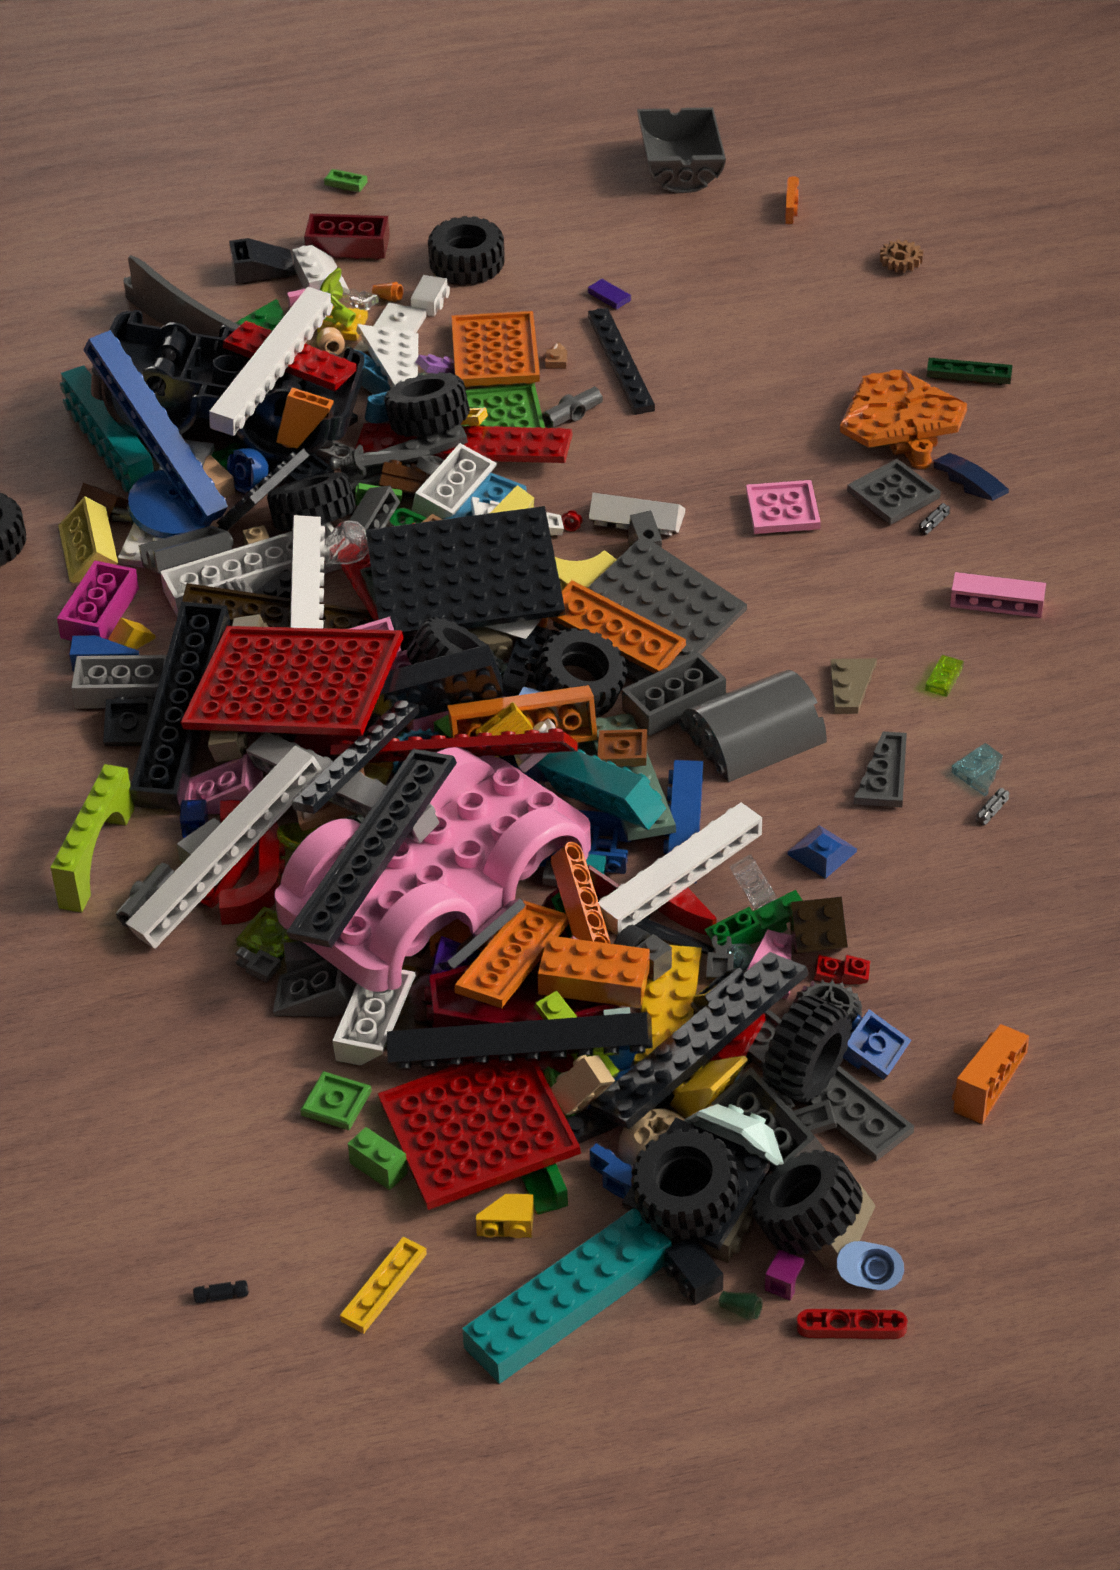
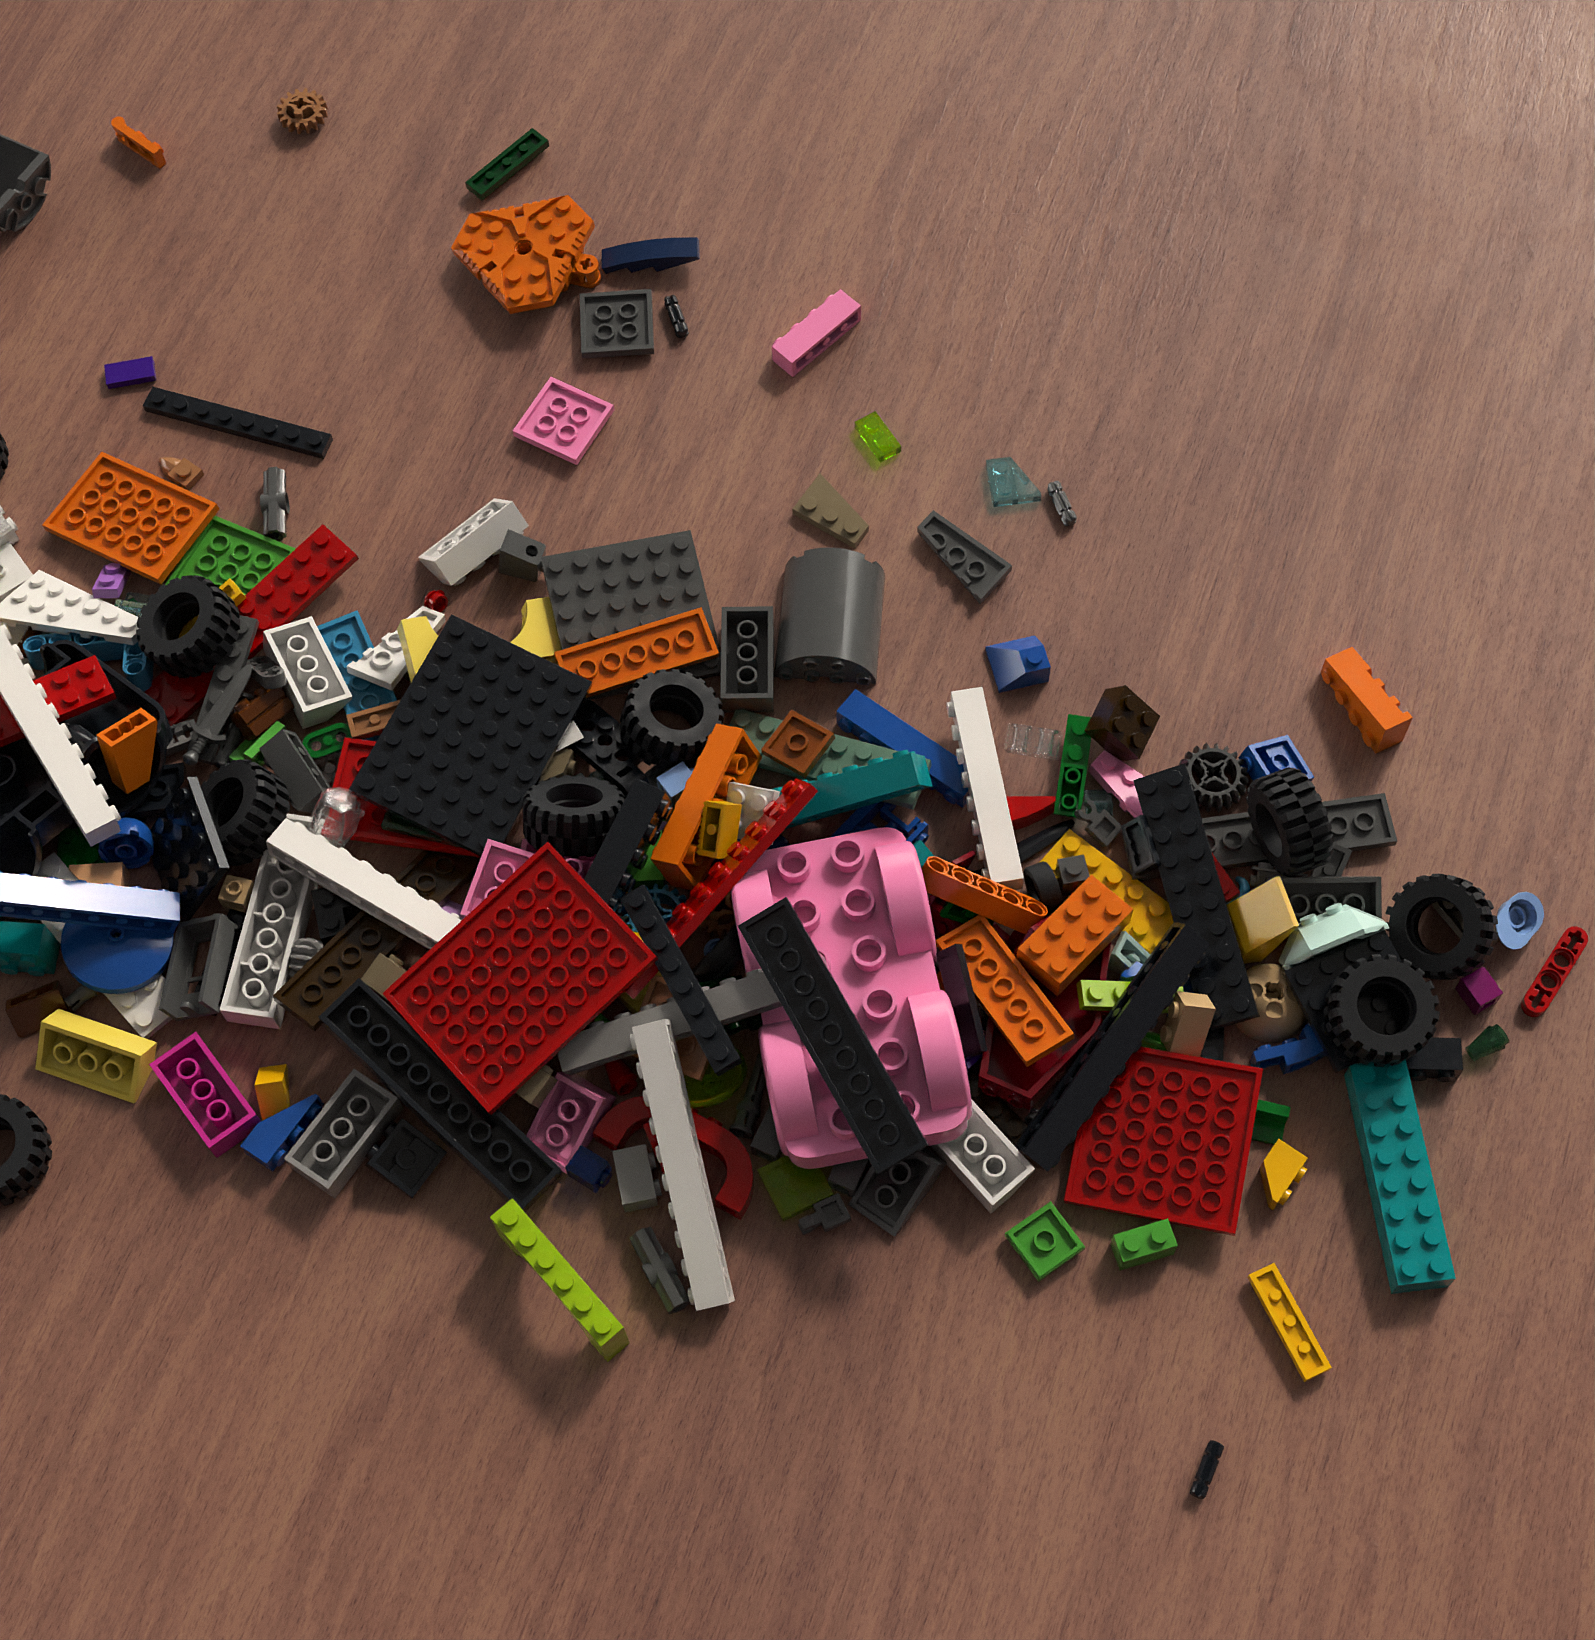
camera: 55 degrees left, 20 degrees up
(849, 971) = (1169, 736): red slope -> none

